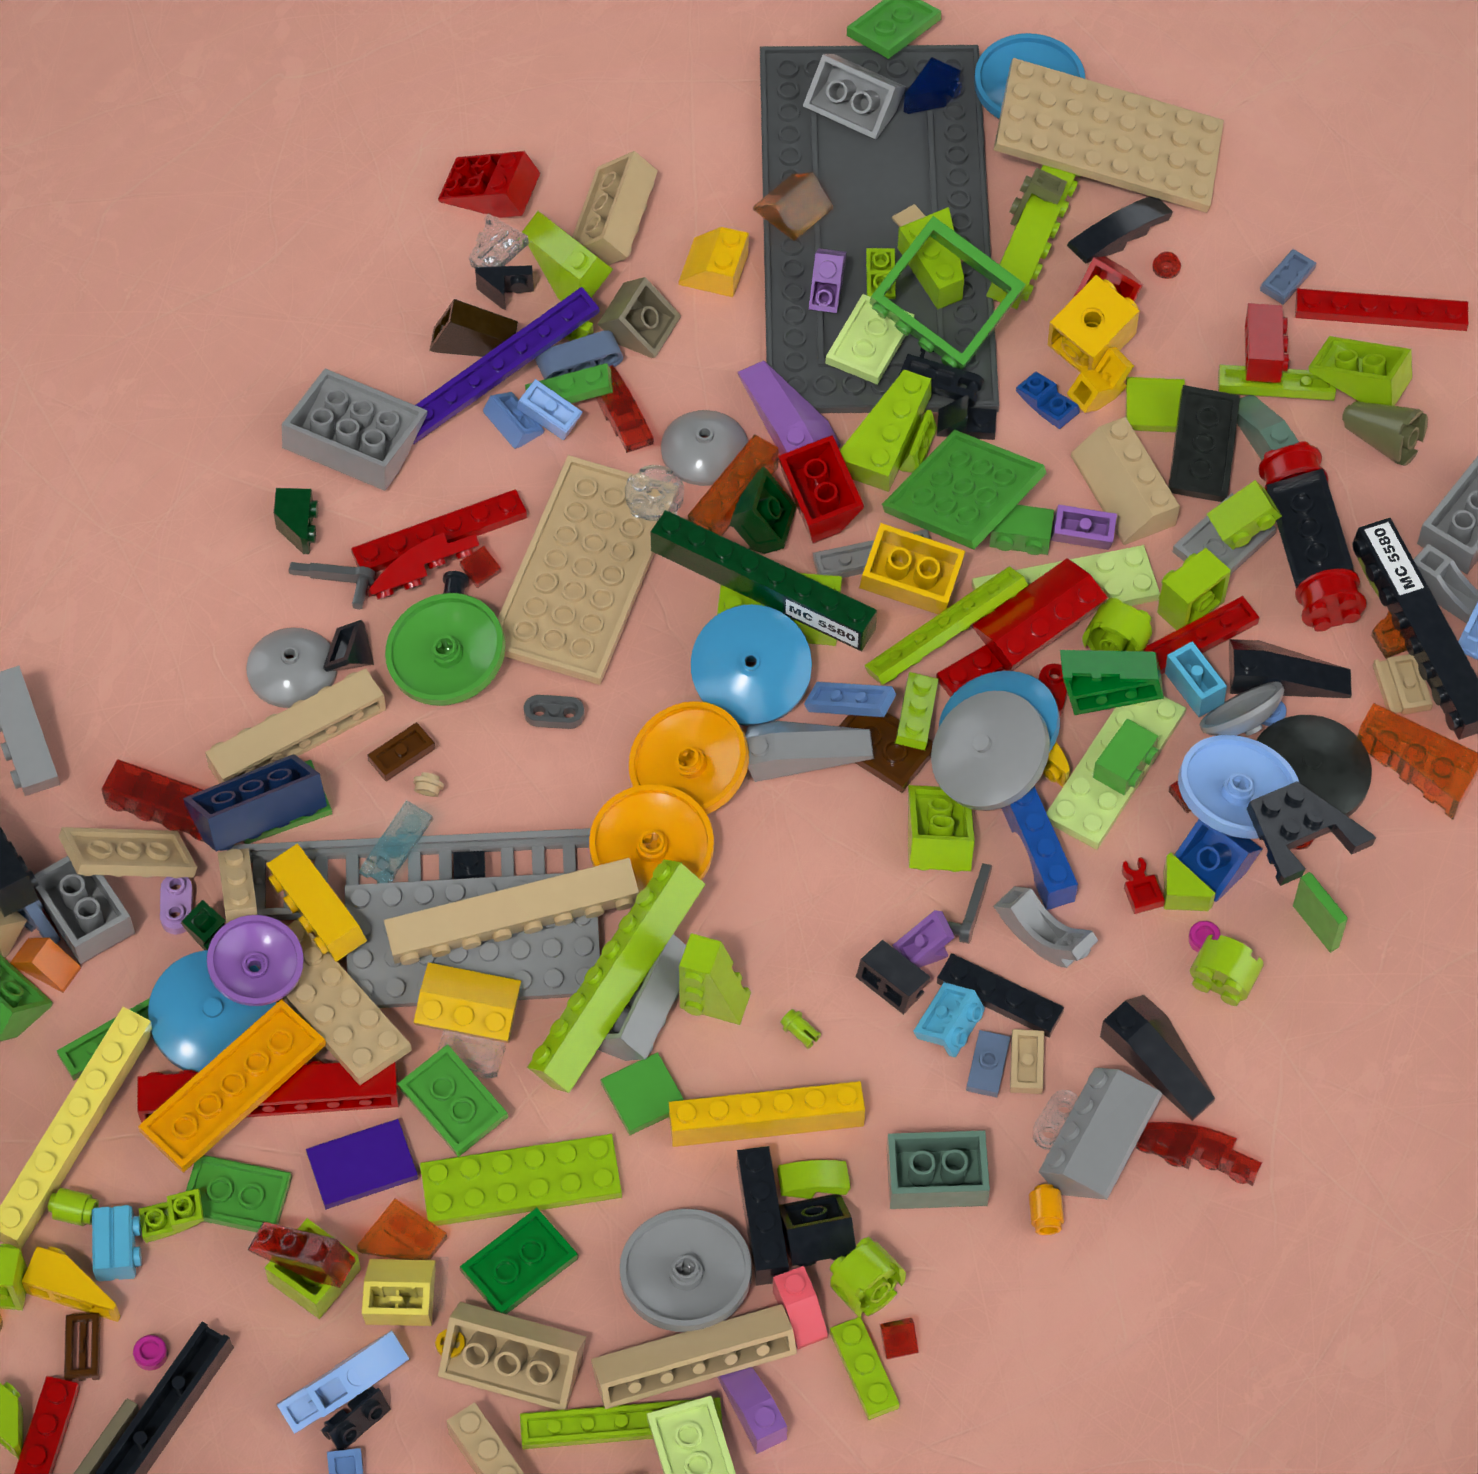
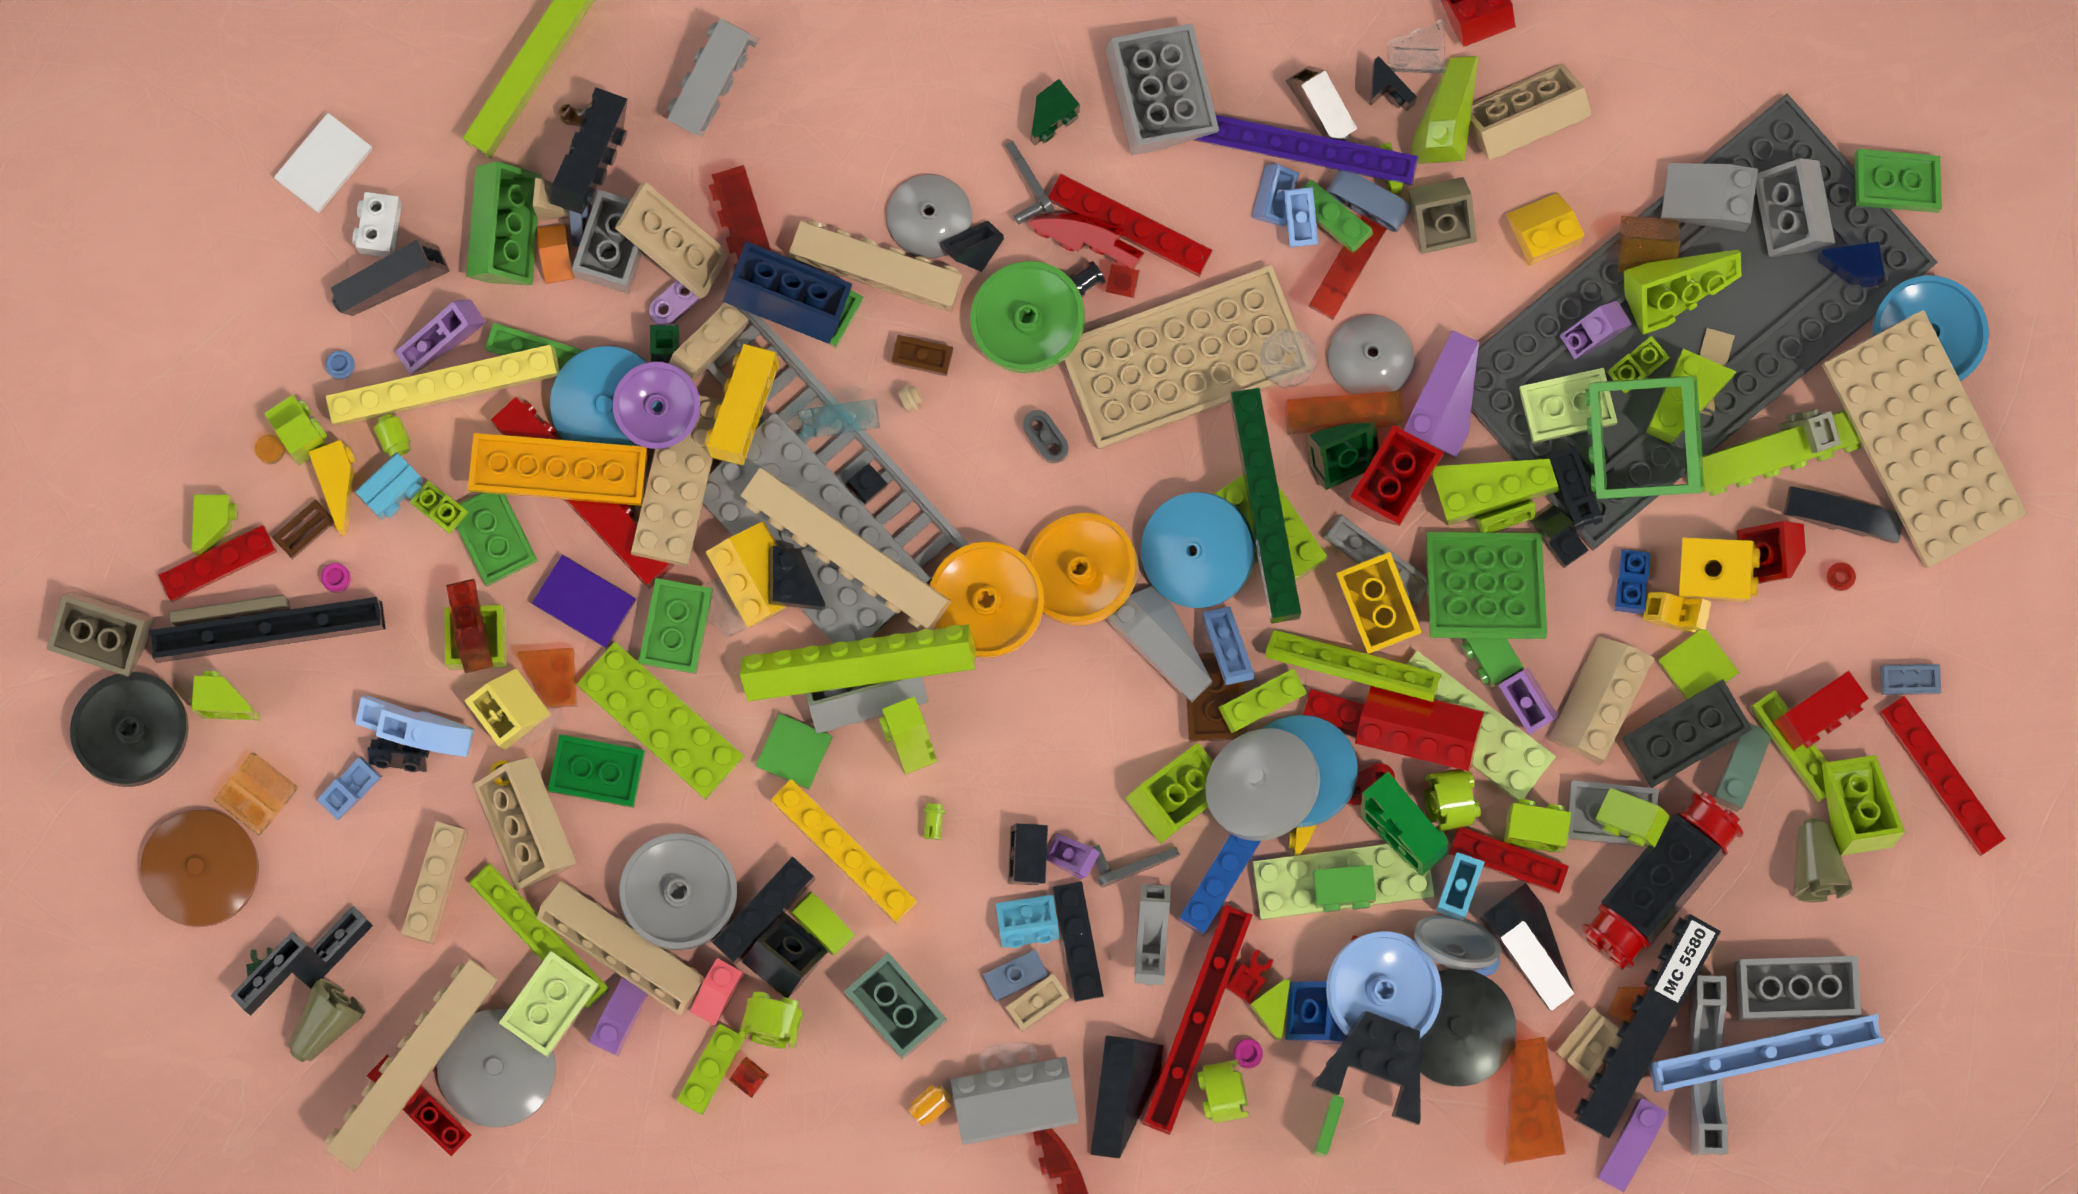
camera: 50 degrees right, 20 degrees up
(25, 1103) = (440, 335): none -> medium lavender slope
(499, 975) = (791, 580): none -> black wing
(794, 137) = (1710, 195): none -> light grey slope
(840, 209) = (1669, 287): none -> lime wedge
(1147, 952) = (1197, 1020): none -> red tile

